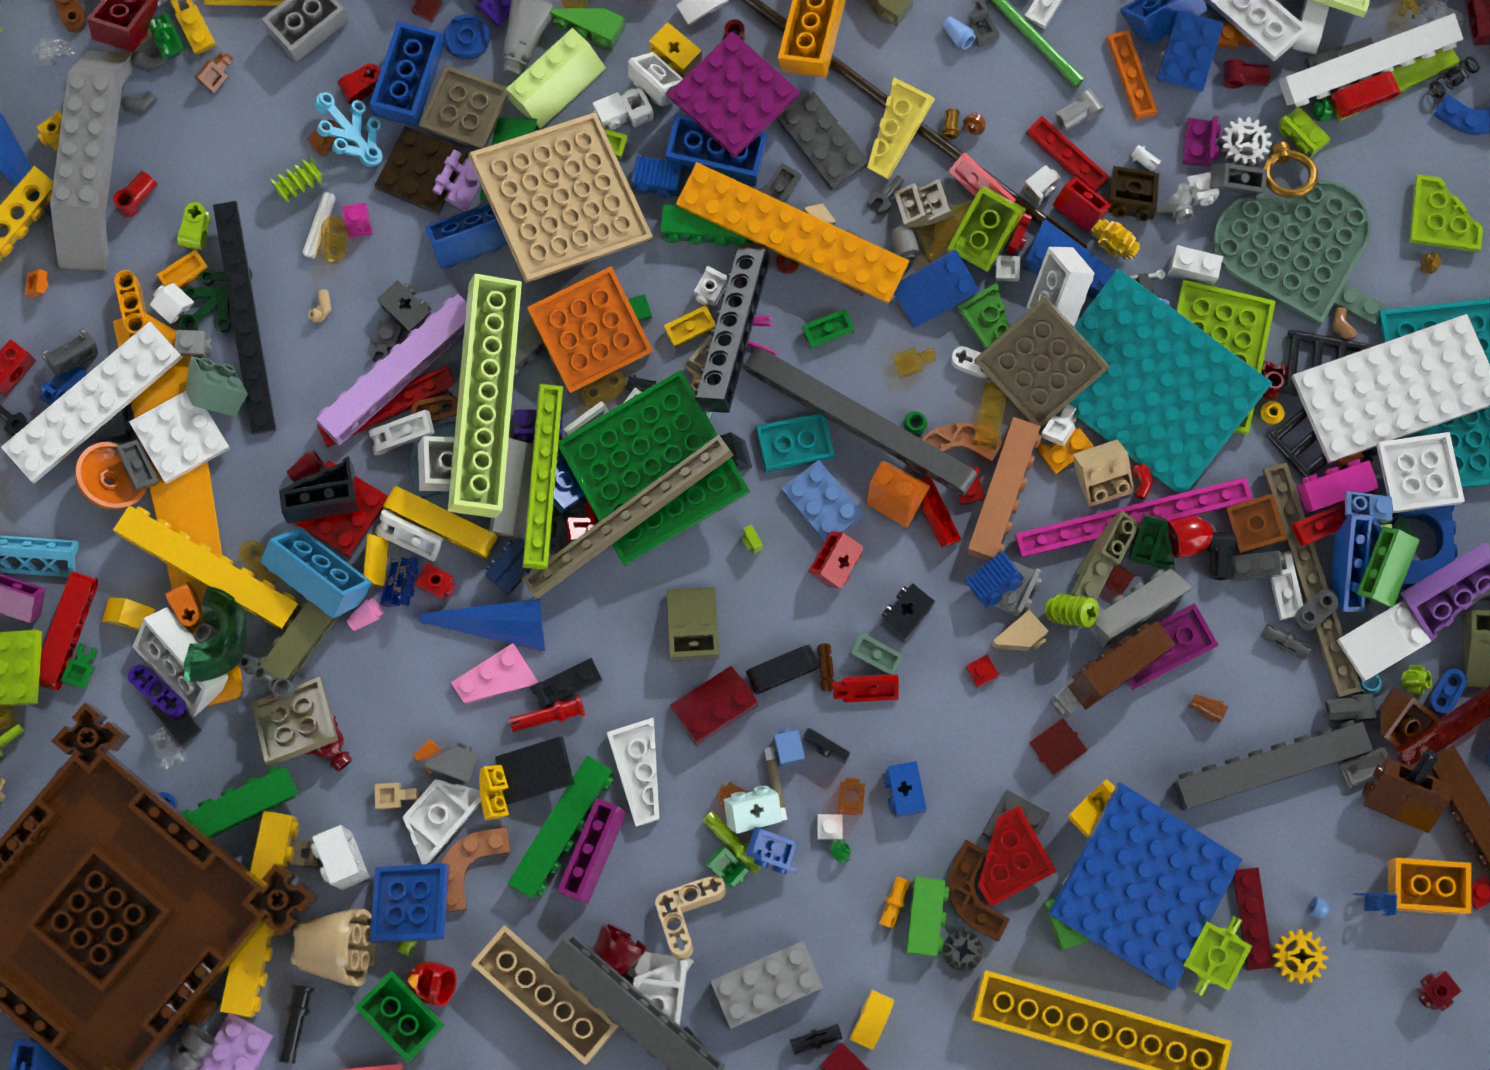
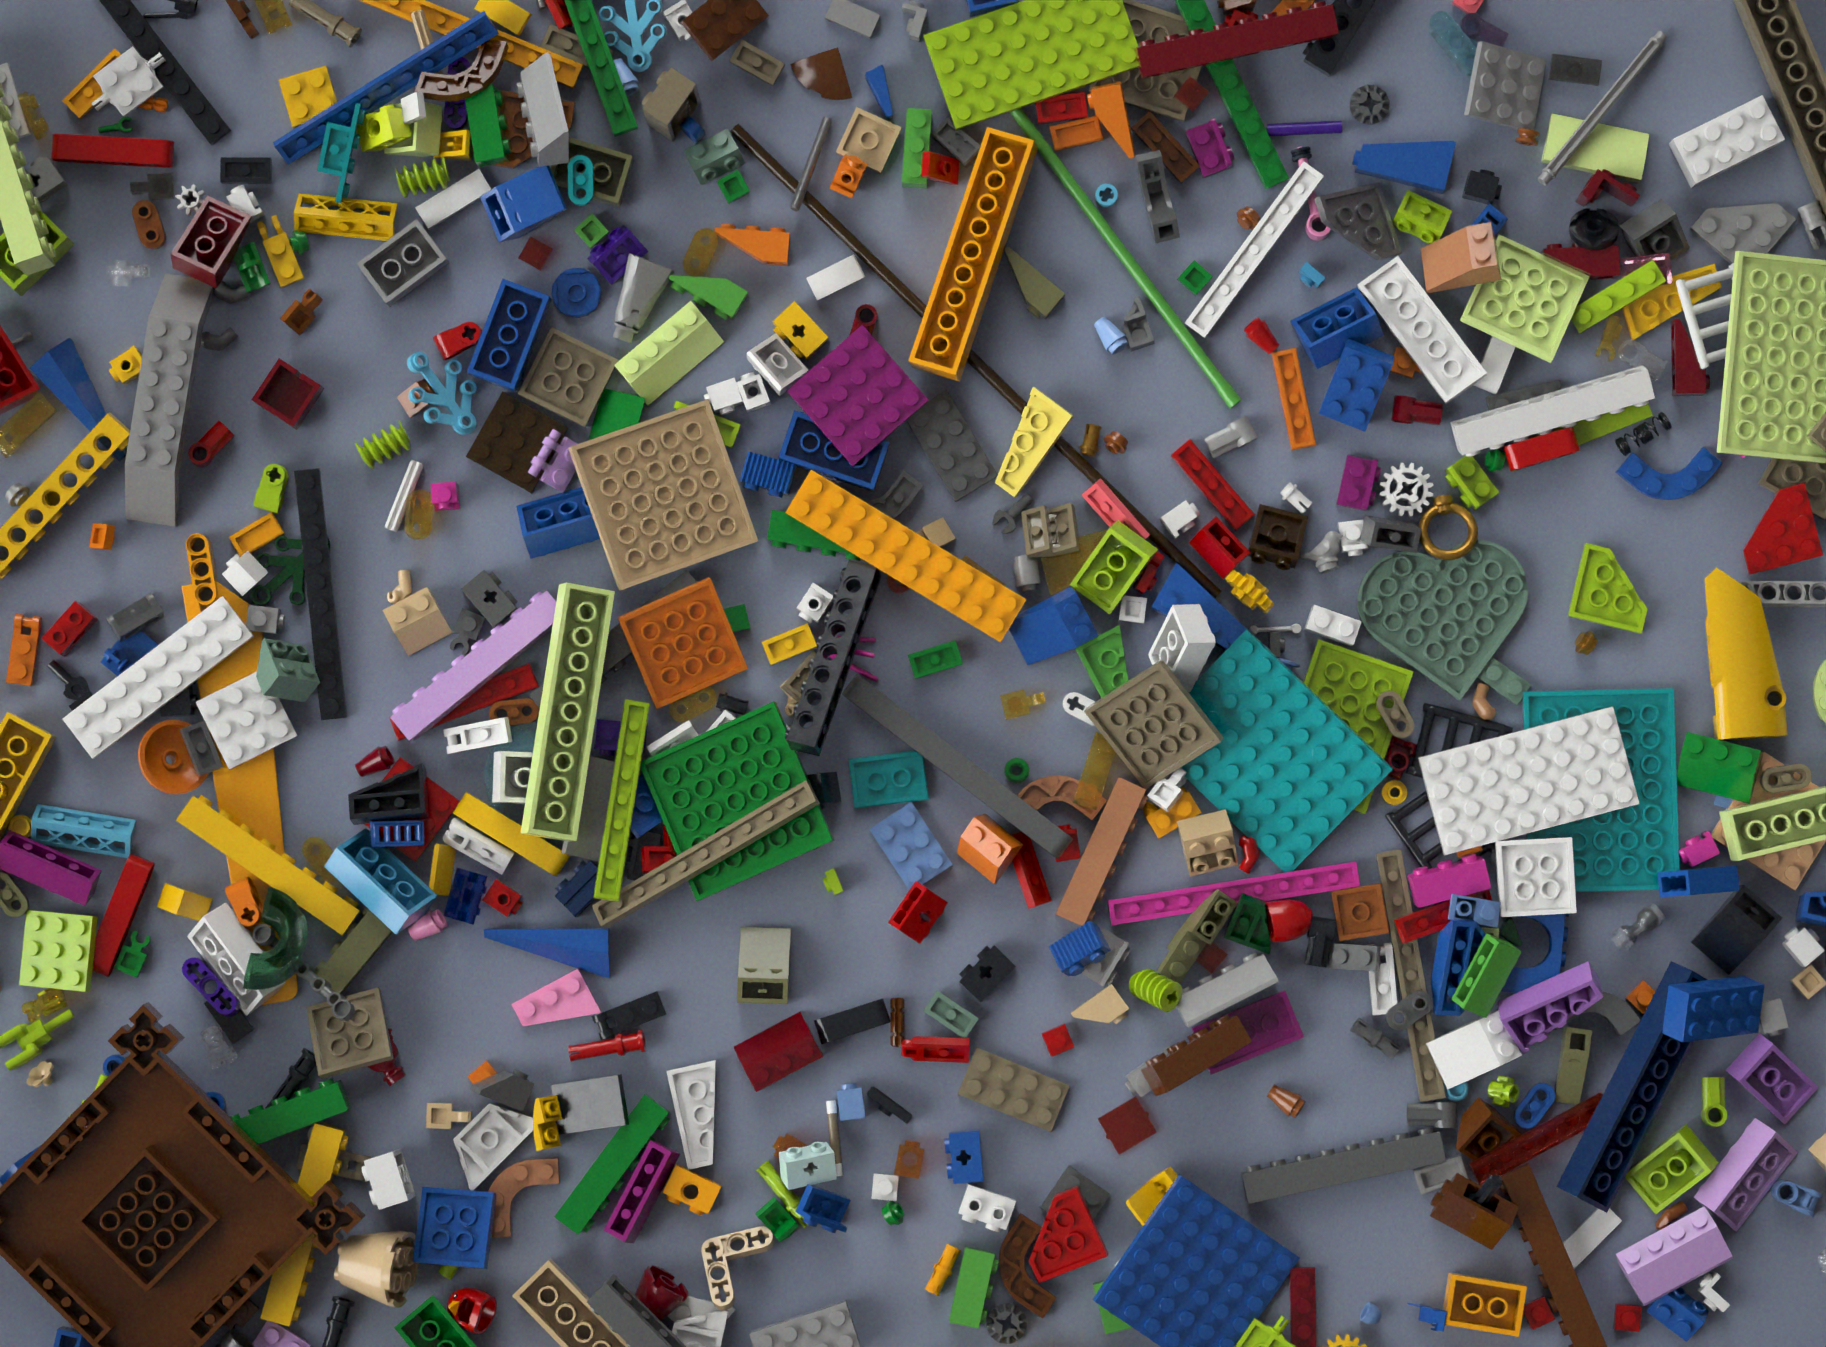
camera: 10 degrees right, 10 degrees up
(201, 142) = (287, 394): none -> dark red piece
(209, 12) = (299, 242): none -> green plate
(246, 766) = (298, 1074): none -> black pin
(338, 334) = (417, 621): none -> tan slope
(349, 517) = (418, 833): none -> blue slope
(629, 835) = (707, 1190): none -> light orange brick
(931, 836) = (986, 1207): none -> white brick
(944, 721) = (1013, 1089): none -> dark tan plate
(1095, 21) = (1261, 335): none -> red cone
(1266, 338) = (1396, 713): none -> dark tan plate

